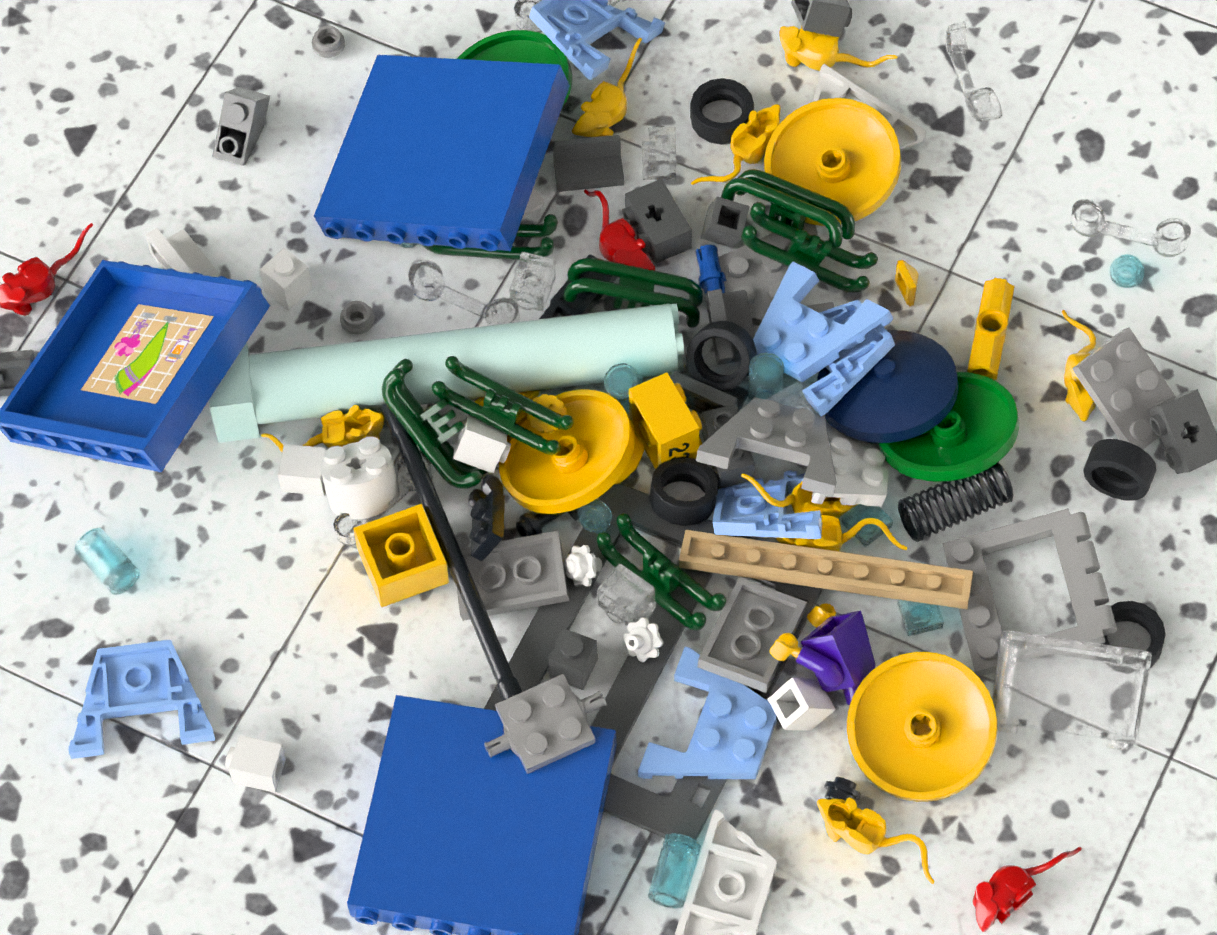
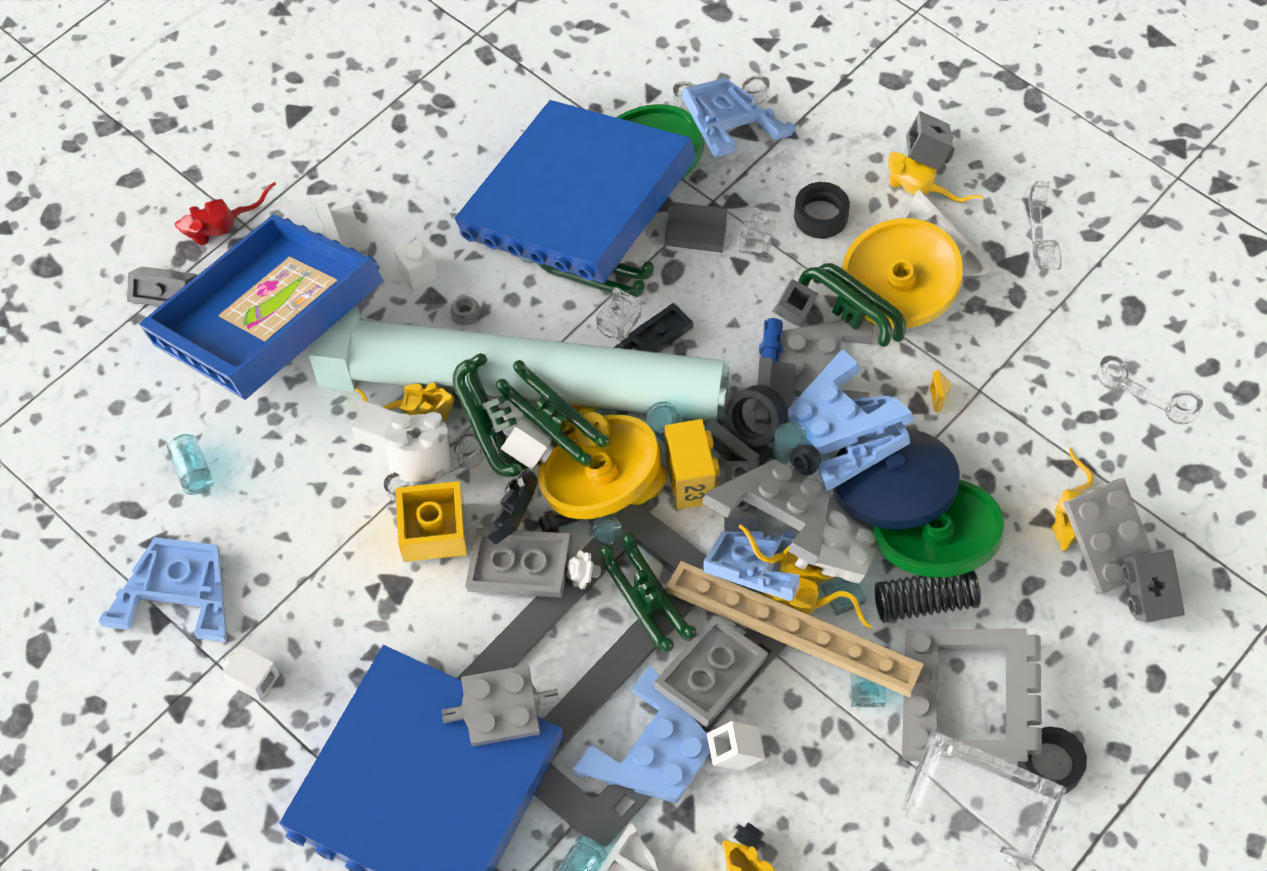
camera: 15 degrees right, 0 degrees up
(240, 124) = (423, 131): slope -> none
(325, 35) = (516, 82): light grey plate -> none
(429, 284) = (533, 297): clear piece -> none
(506, 682) = (481, 629): black piece -> none
(574, 657) = (548, 650): dark grey brick -> none
(606, 107) = (726, 183): yellow animal -> none
(618, 240) = (700, 301): red animal -> none
(626, 596) = (611, 608): clear brick -> none
(635, 286) = (702, 339): dark green piece -> none
(643, 639) = (614, 649): white plant -> none
(657, 221) = (739, 289): dark grey brick -> none
(679, 511) = (683, 544): black tyre -> none
(749, 141) = (836, 239): yellow animal -> none
(789, 388) = (805, 459): none -> black plate
(806, 251) = (857, 343): dark green piece -> none
(834, 651) = (778, 706): dark purple torso -> none
(922, 726) = (838, 796): yellow dish -> none
(993, 314) = (1007, 437): yellow piece -> none
(1130, 264) = (1139, 421): clear light blue plate -> none
(1136, 466) = (1083, 604): black tyre -> none

